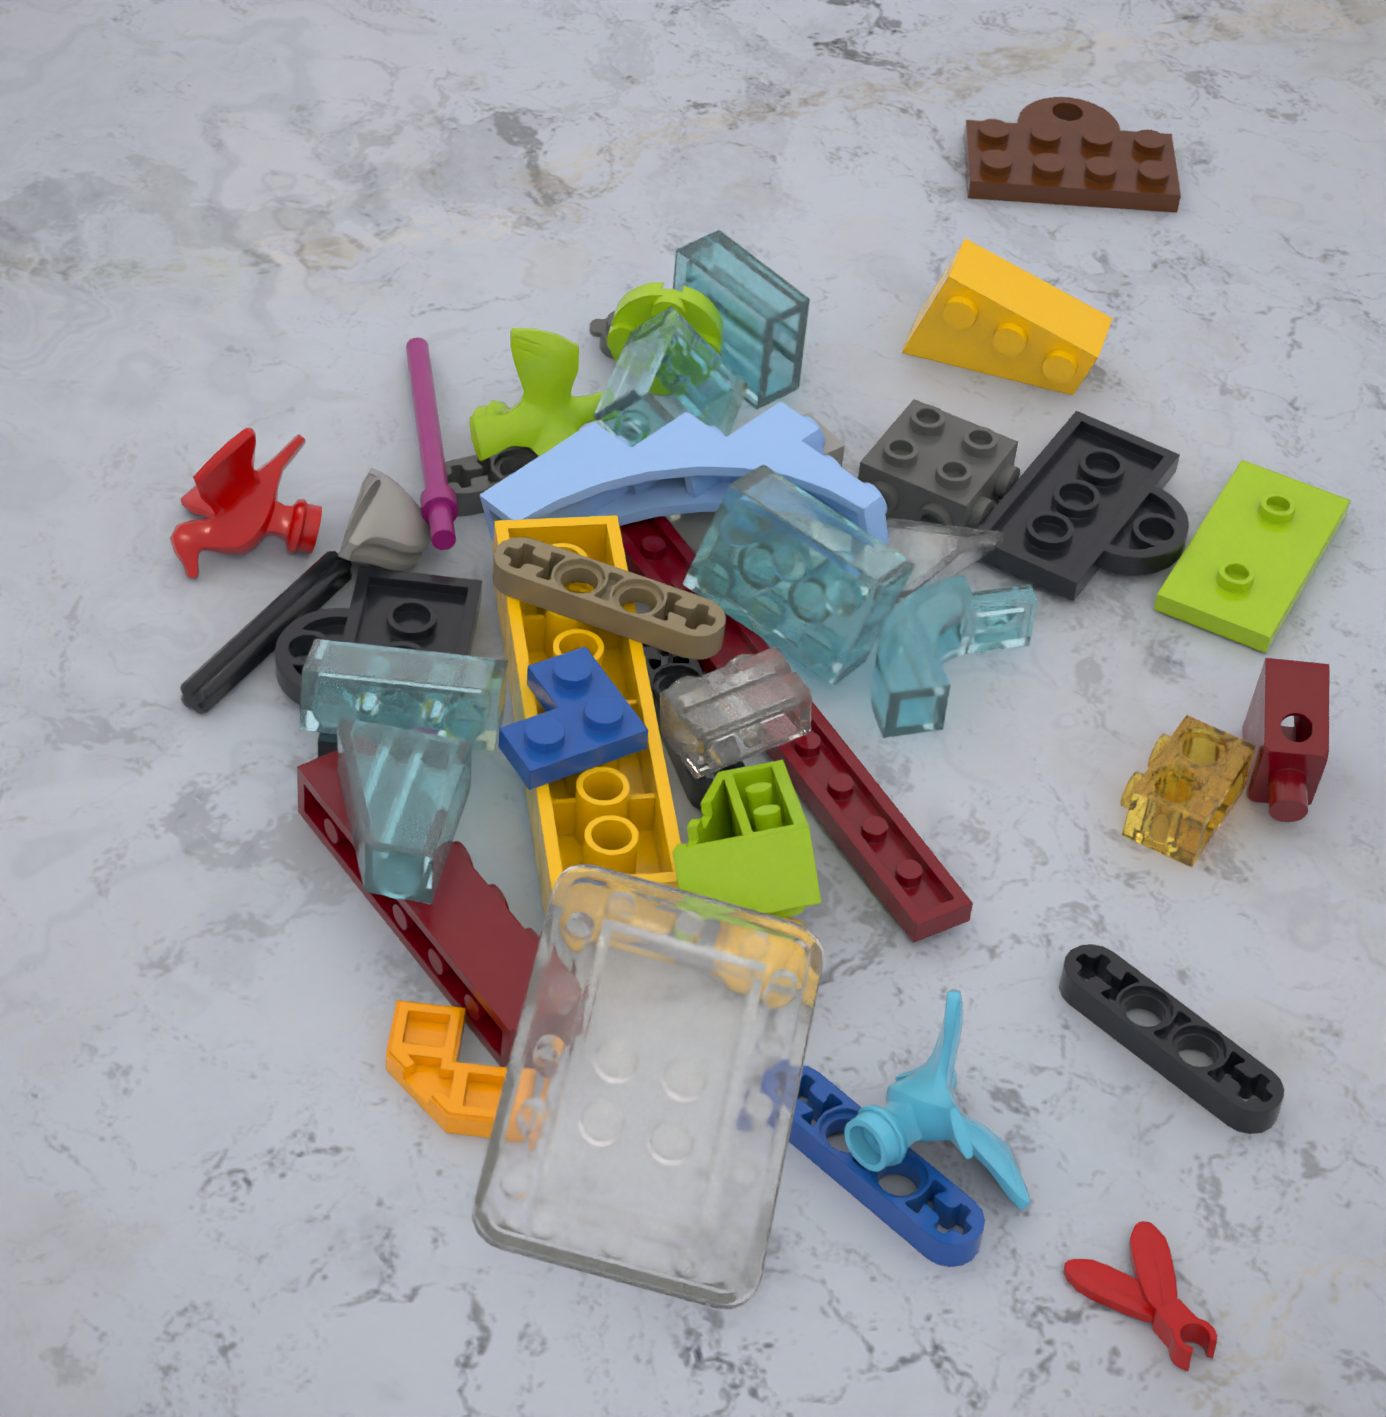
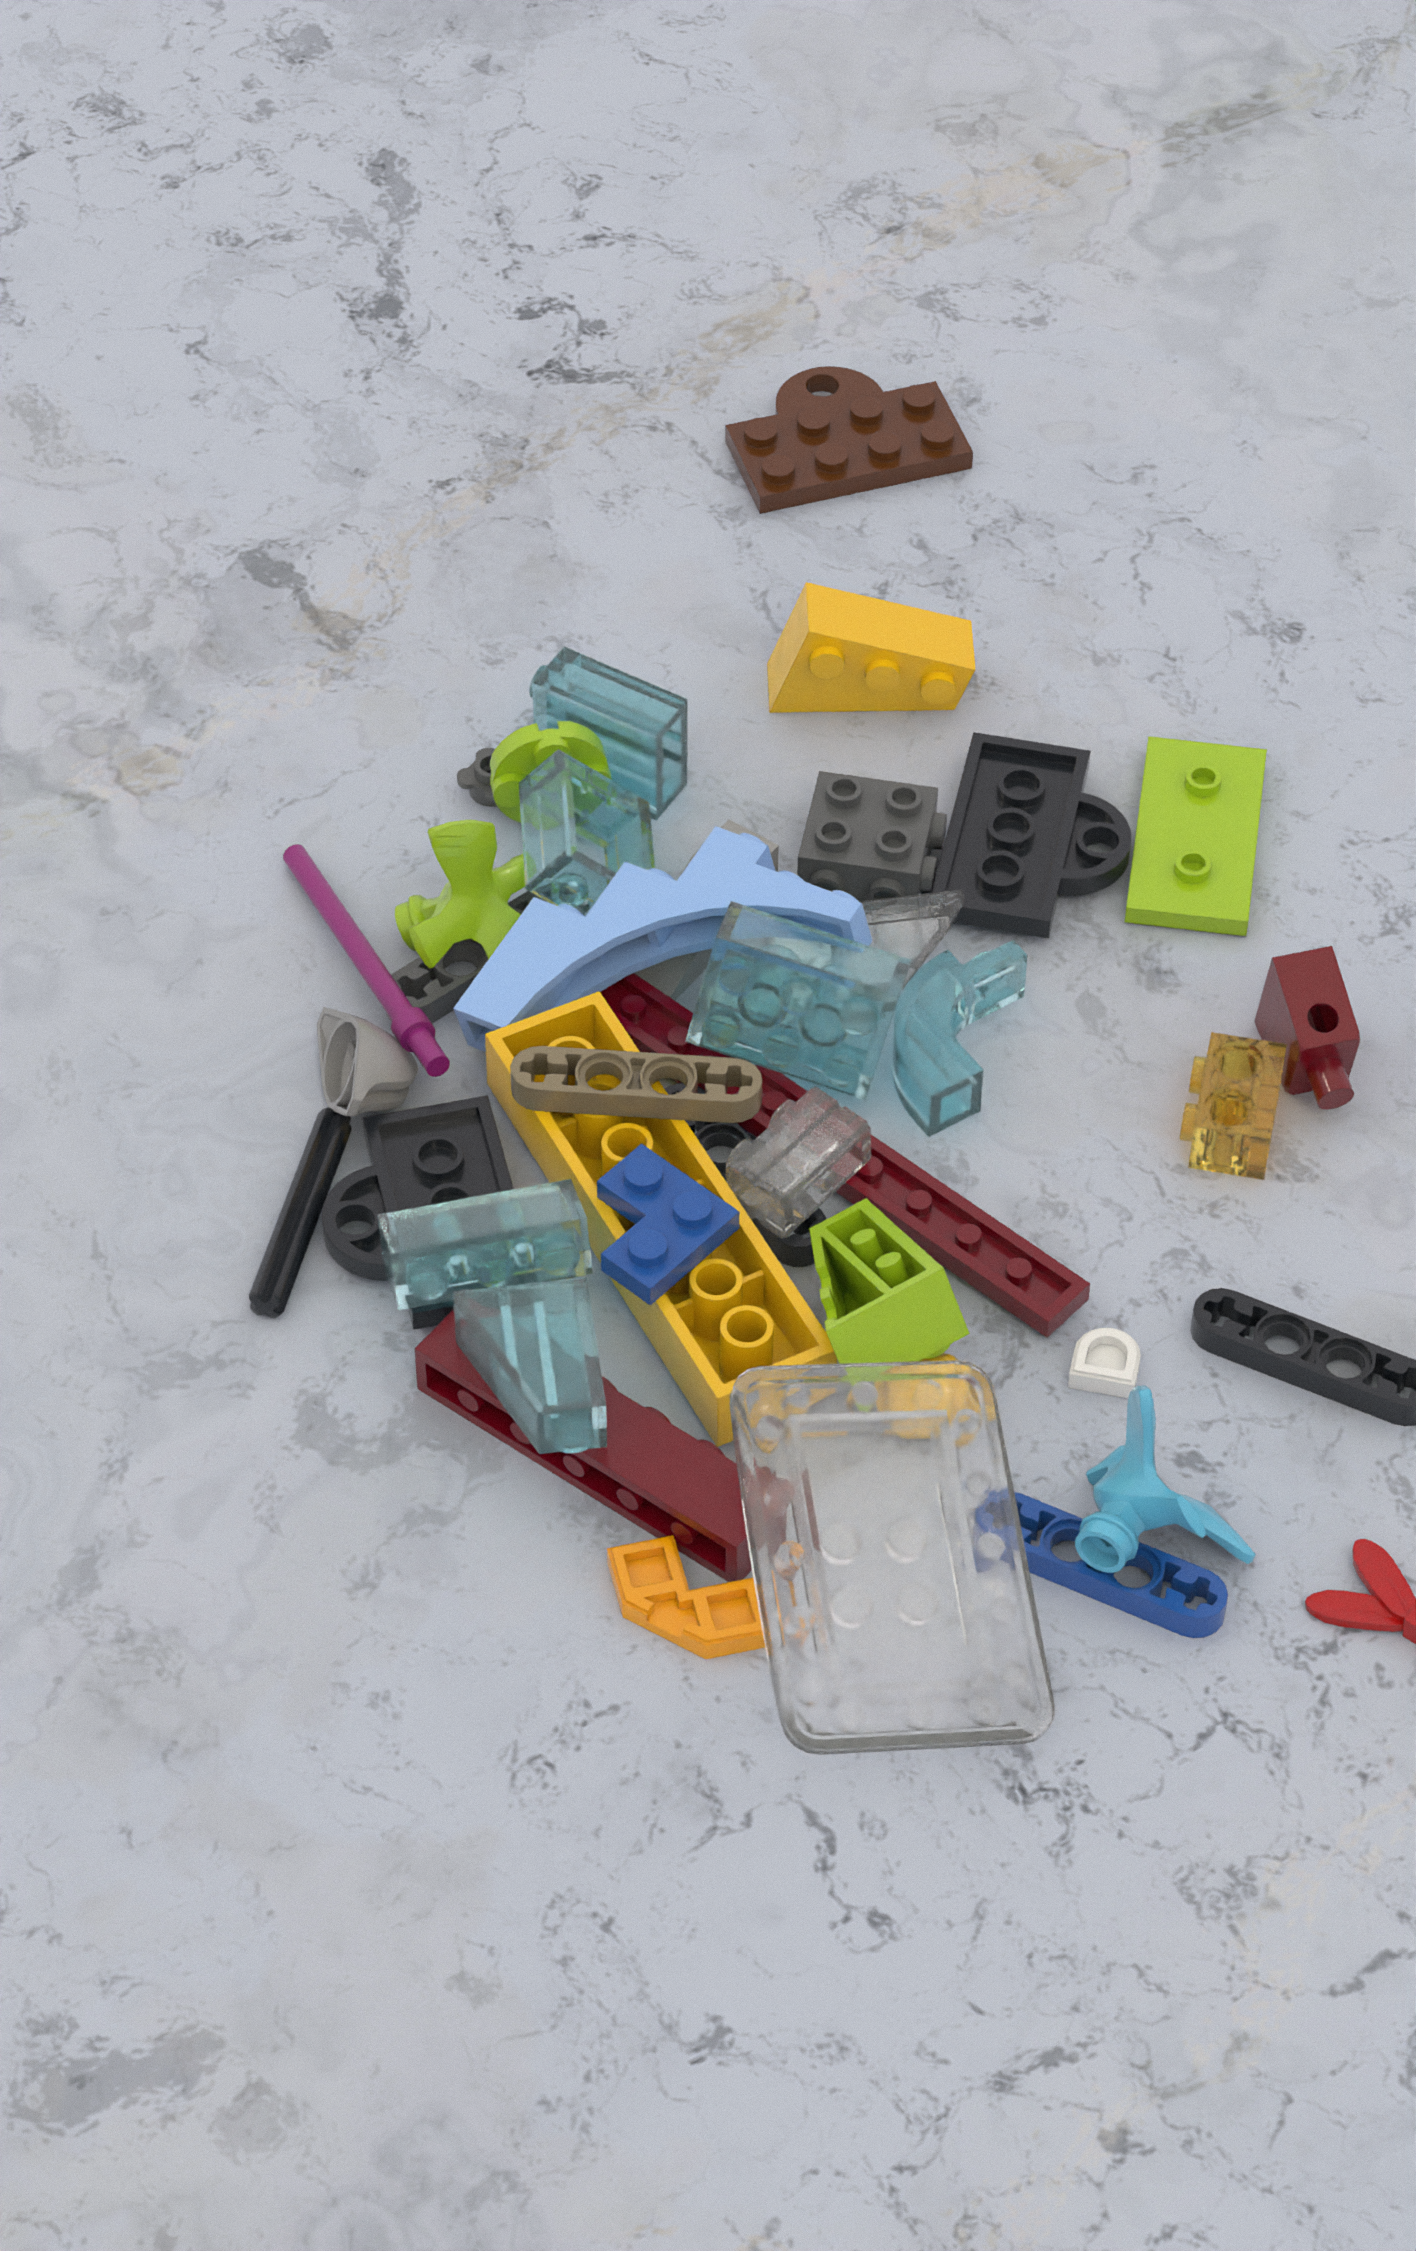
camera: 15 degrees left, 5 degrees up
(243, 505) = (218, 1088): red animal -> none
(963, 971) = (1105, 1363): none -> white tile

